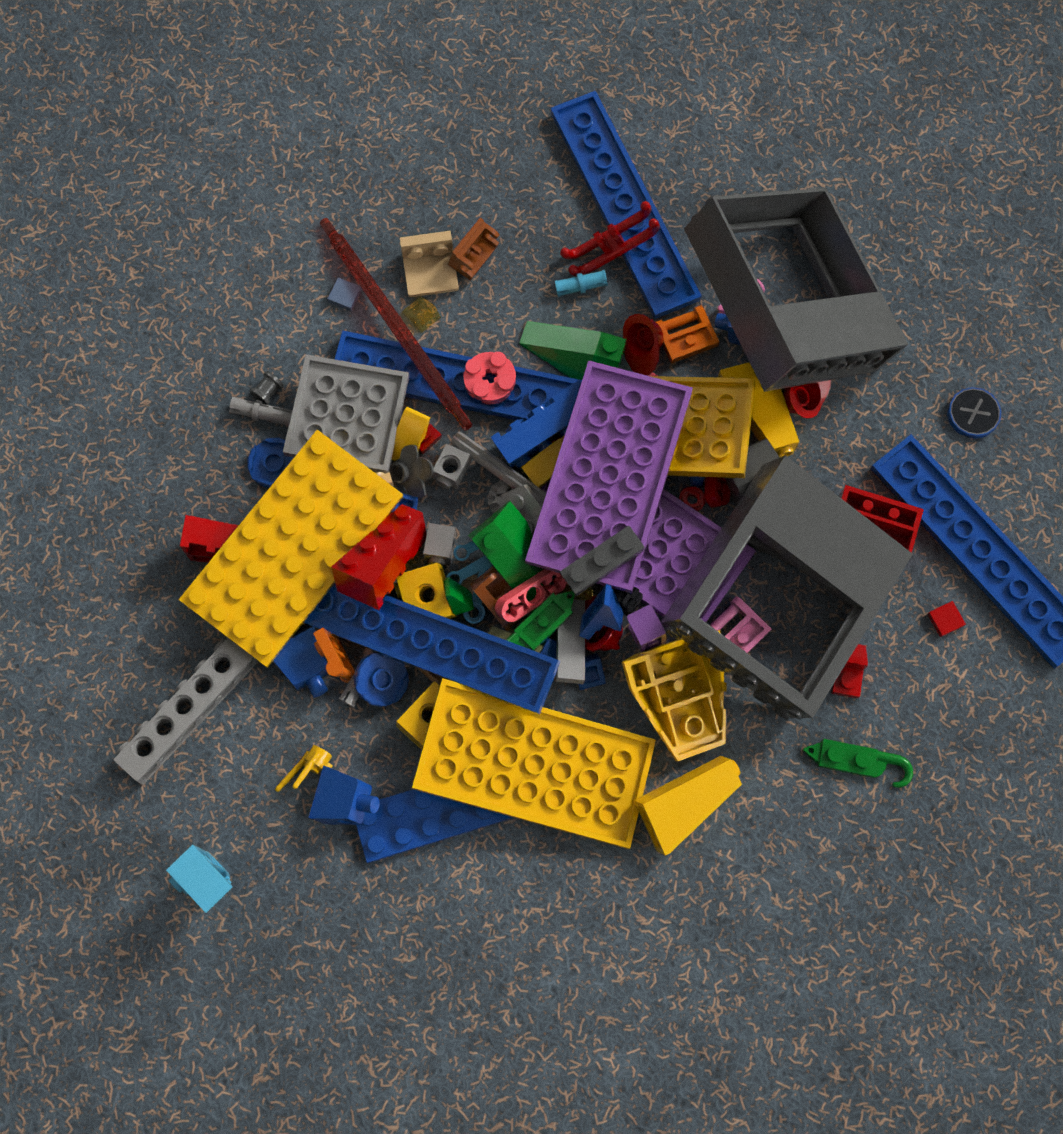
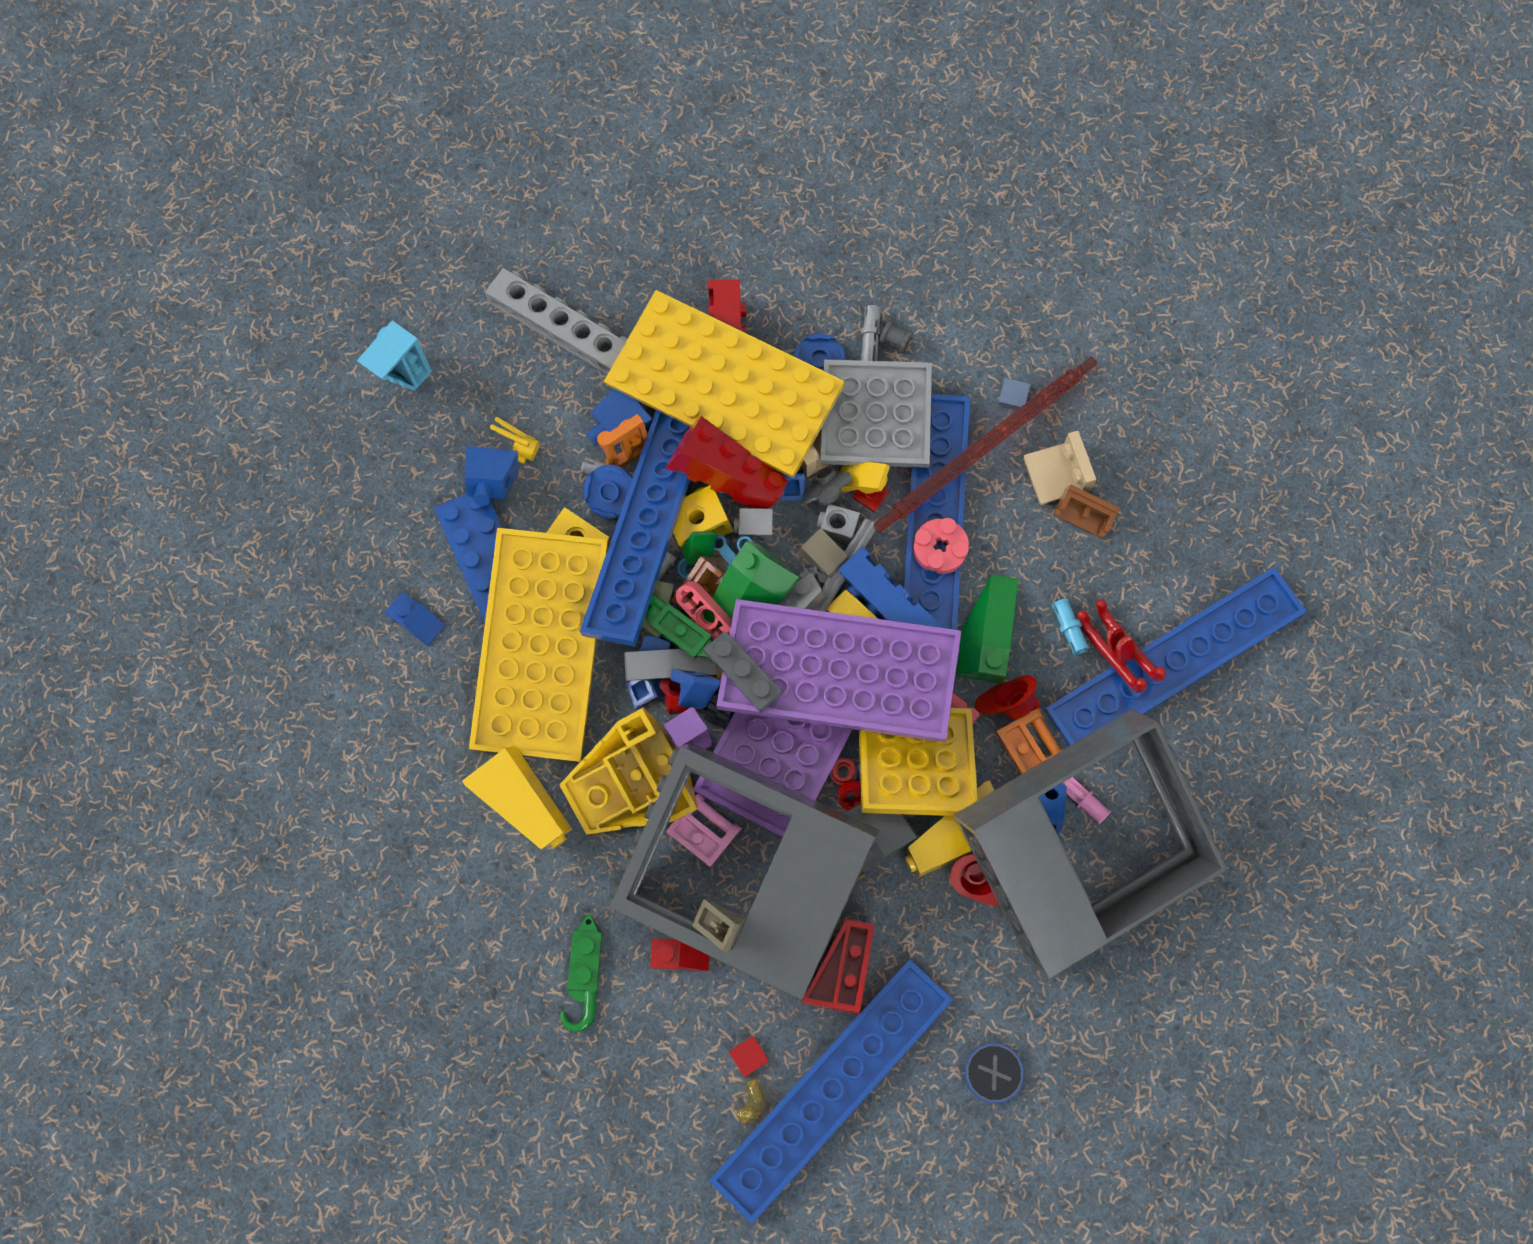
camera: 85 degrees right, 0 degrees up
(422, 313) = (1006, 472): clear yellow slope -> none
(480, 483) = (824, 553): none -> dark tan slope
(483, 893) = (415, 618): none -> blue slope
(845, 611) = (718, 924): none -> dark tan slope
(997, 622) = (755, 1103): none -> clear yellow arm

